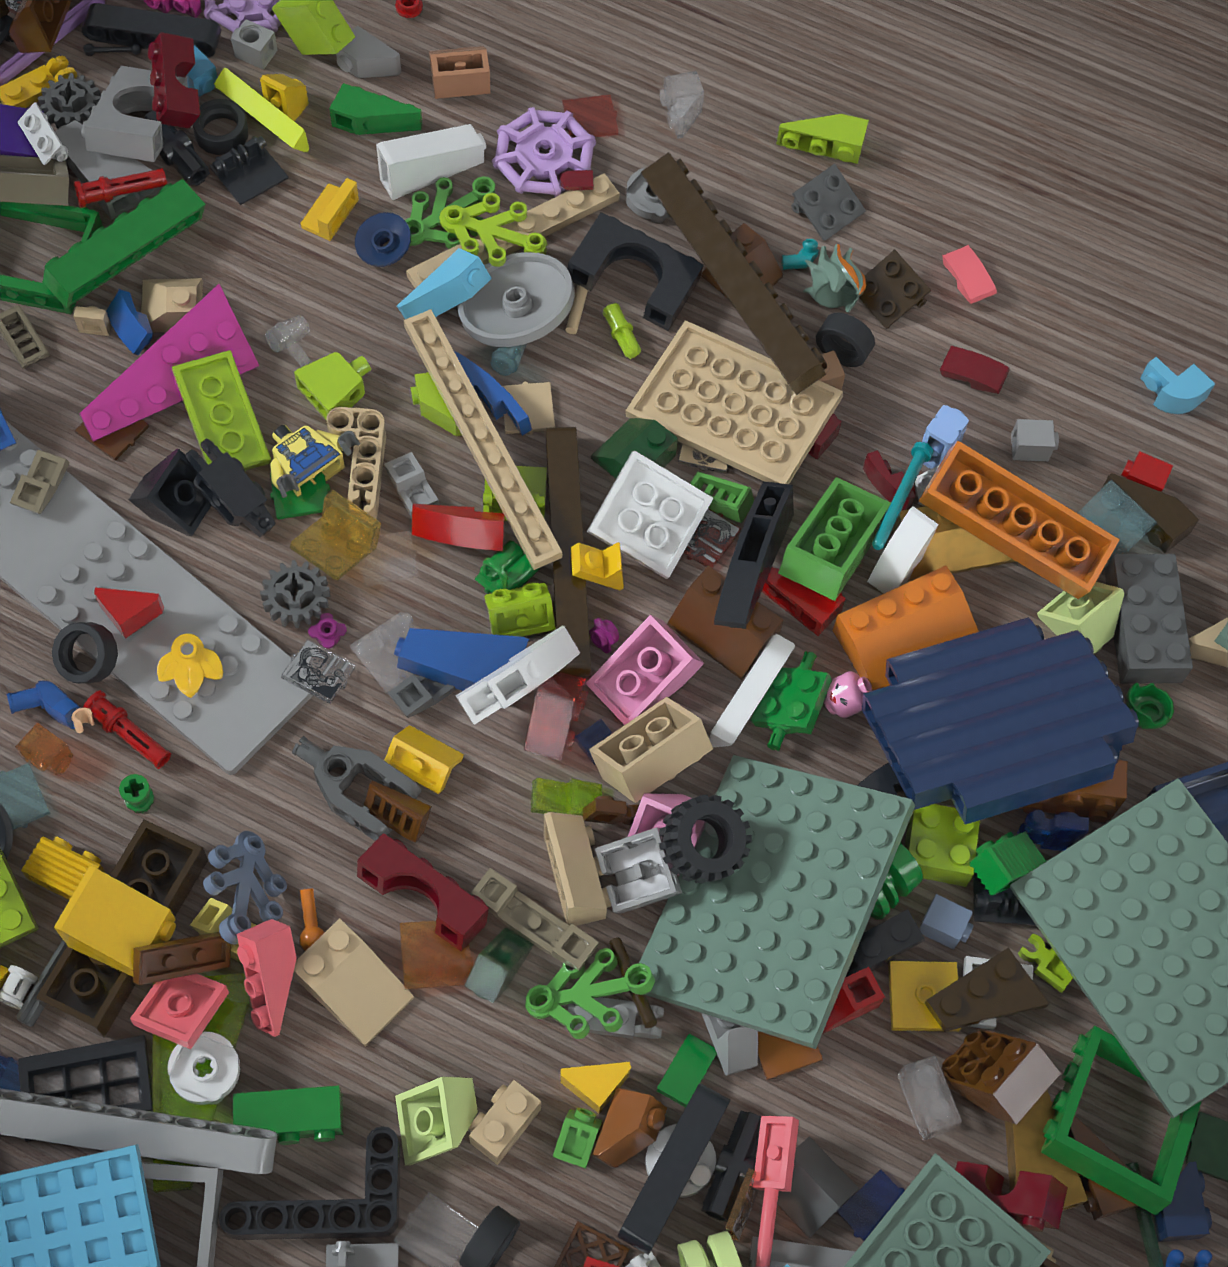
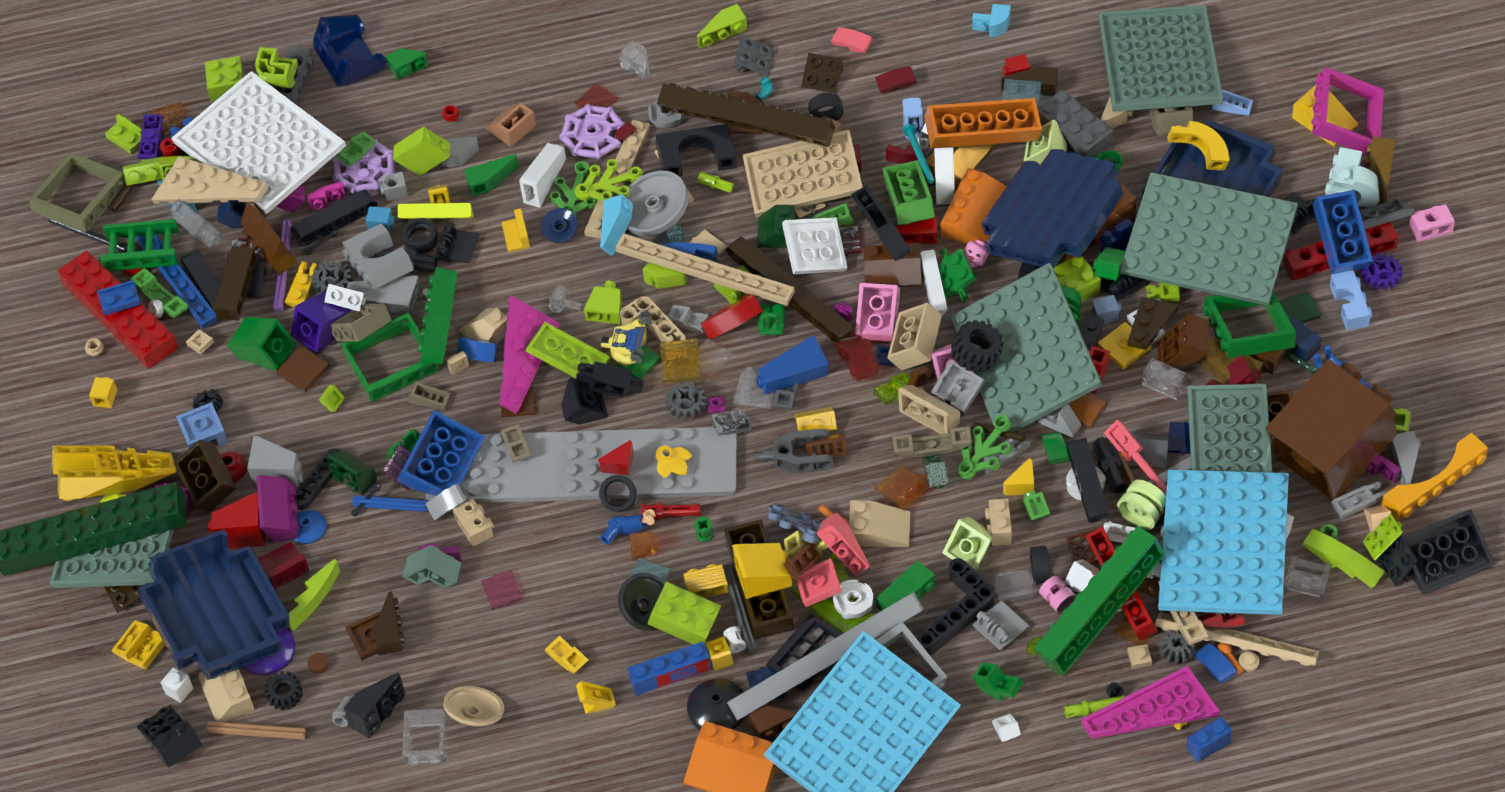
camera: 30 degrees left, 10 degrees down
(107, 188) = (405, 297): red pin -> none
(173, 102) = (371, 218): dark red arch -> none
(392, 867) = (852, 467): dark red arch -> none
(519, 676) = (828, 351): white slope -> none
(520, 610) = (796, 328): lime bracket -> none
(598, 565) = (814, 283): yellow slope -> none
(629, 1126) = (1053, 482): dark orange slope -> none
(836, 280) = (794, 86): sand green hair -> none
(1033, 440) = (952, 90): light grey brick -> none

